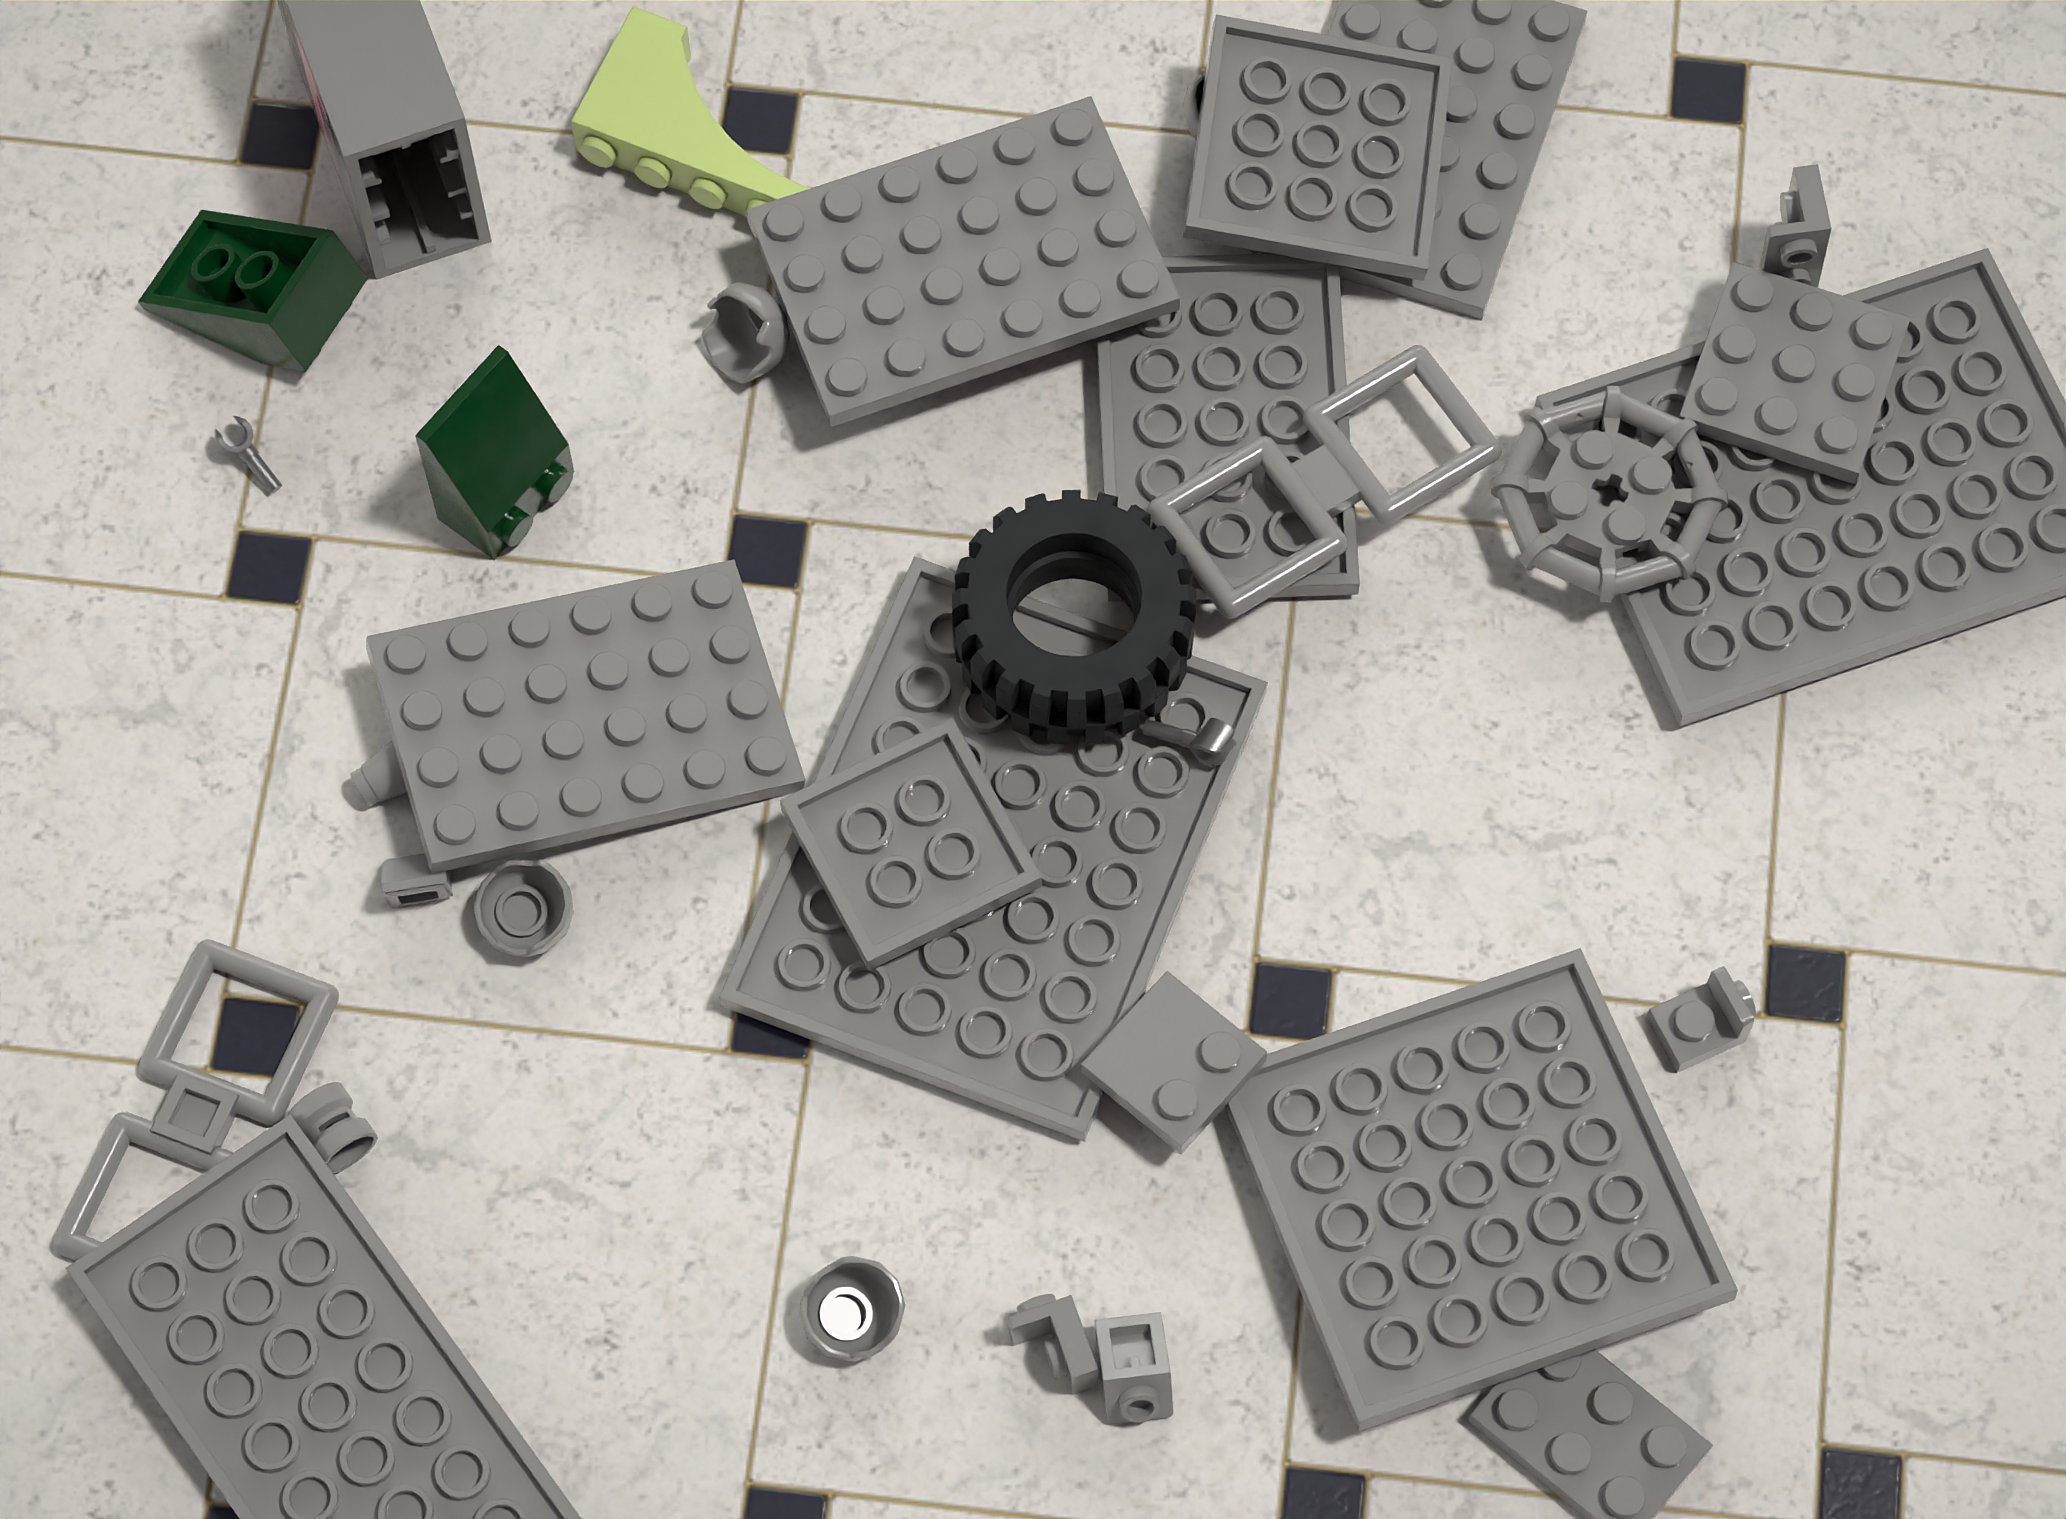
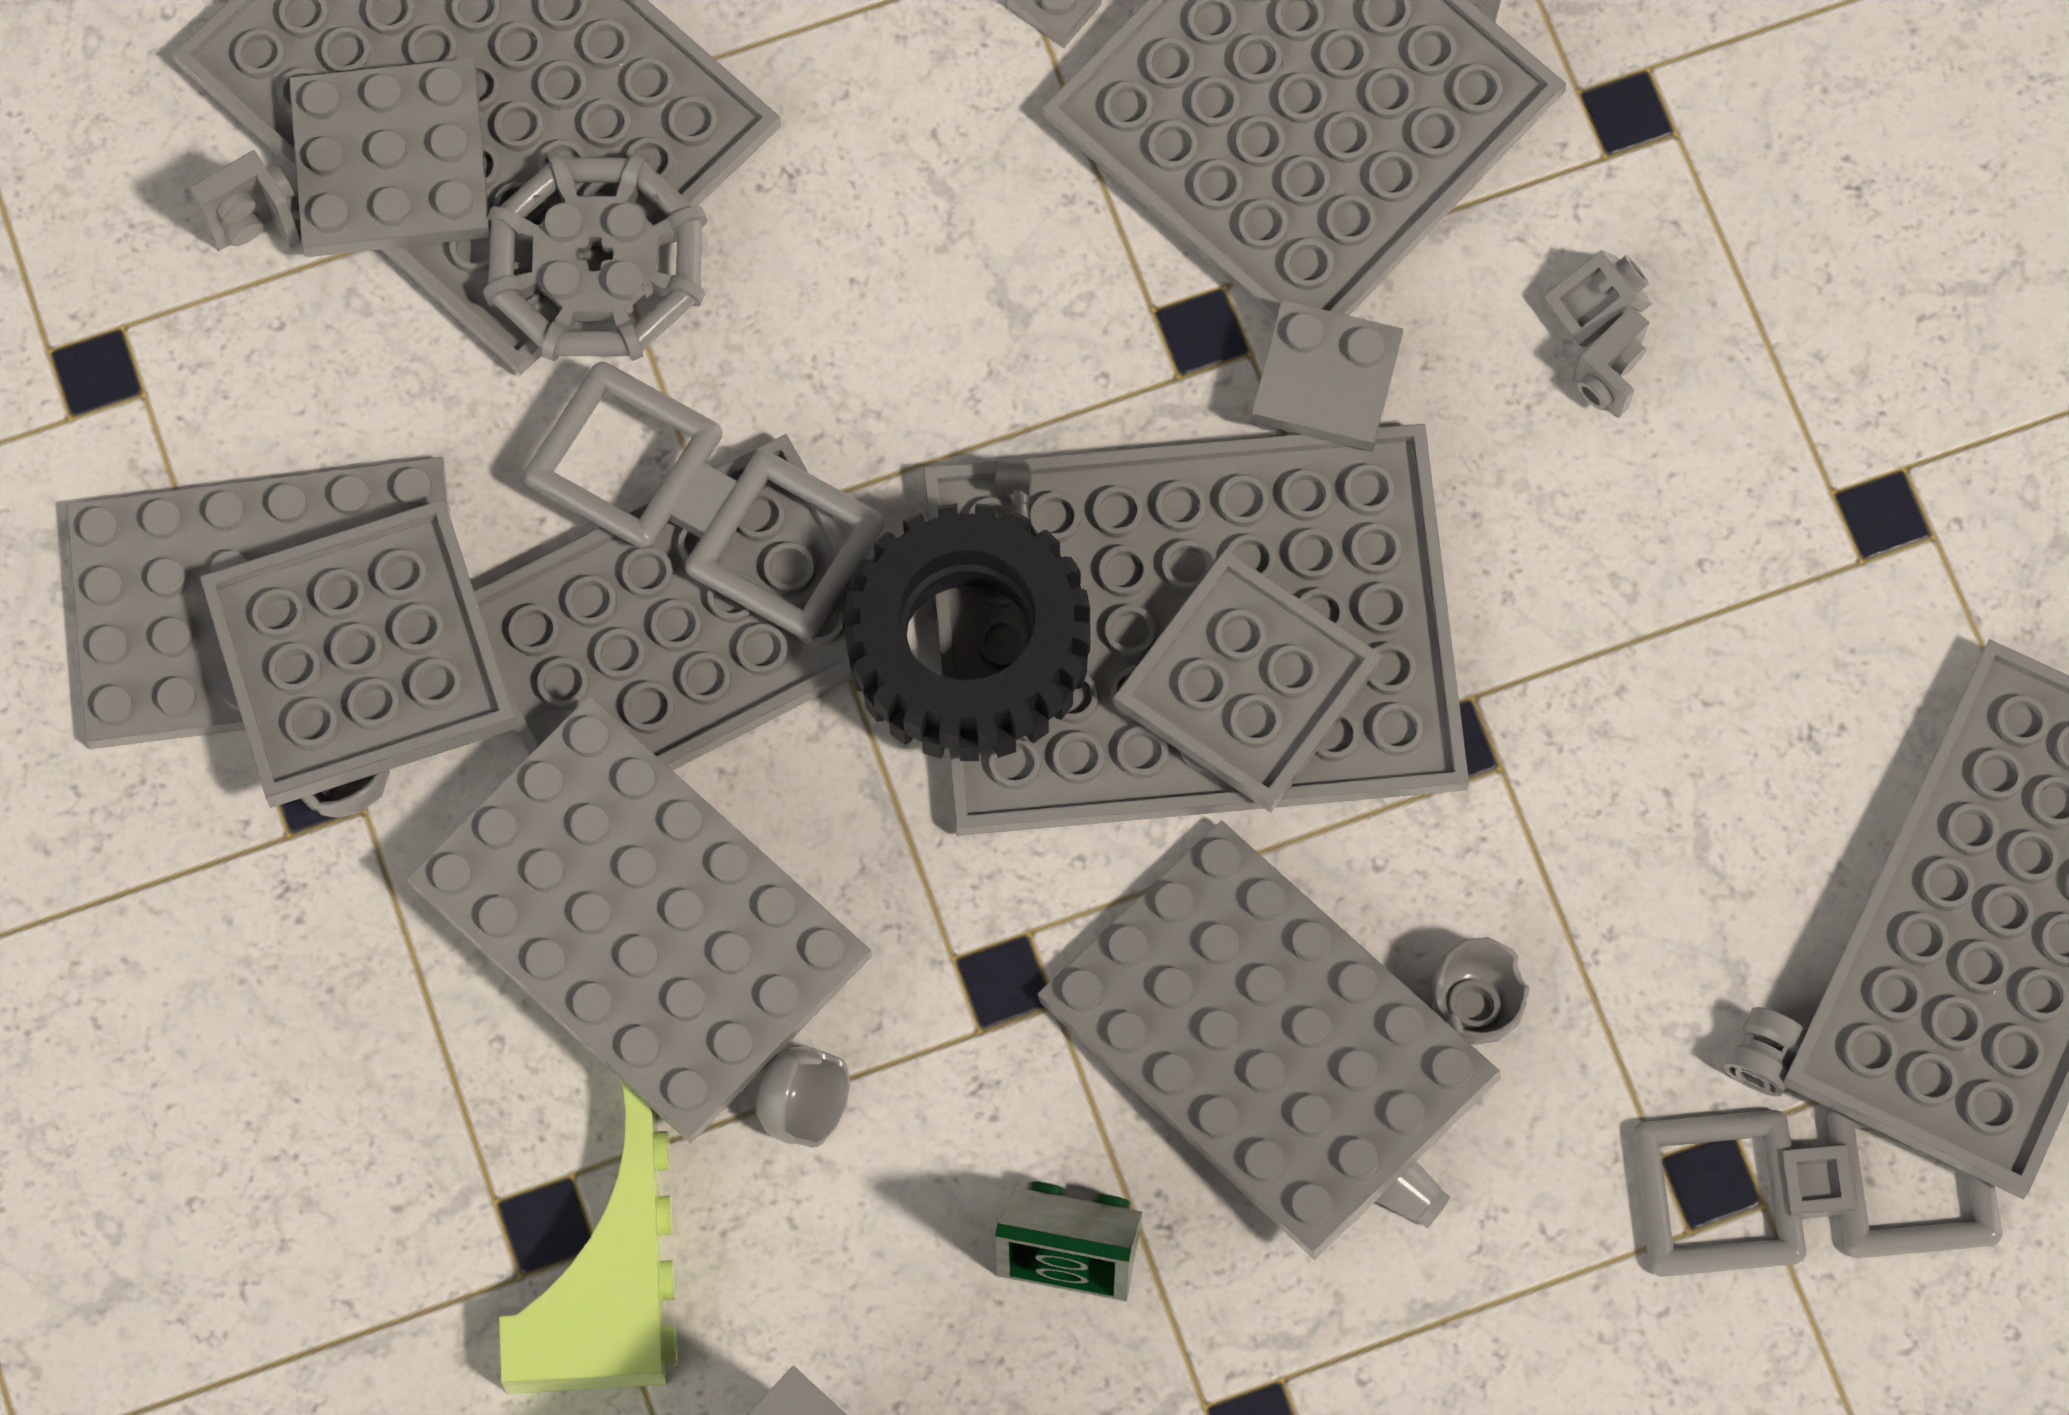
camera: 115 degrees left, 5 degrees up
(409, 881) = (1501, 1113): light grey slope -> none
(852, 1308) = (1681, 533): light grey hair -> none

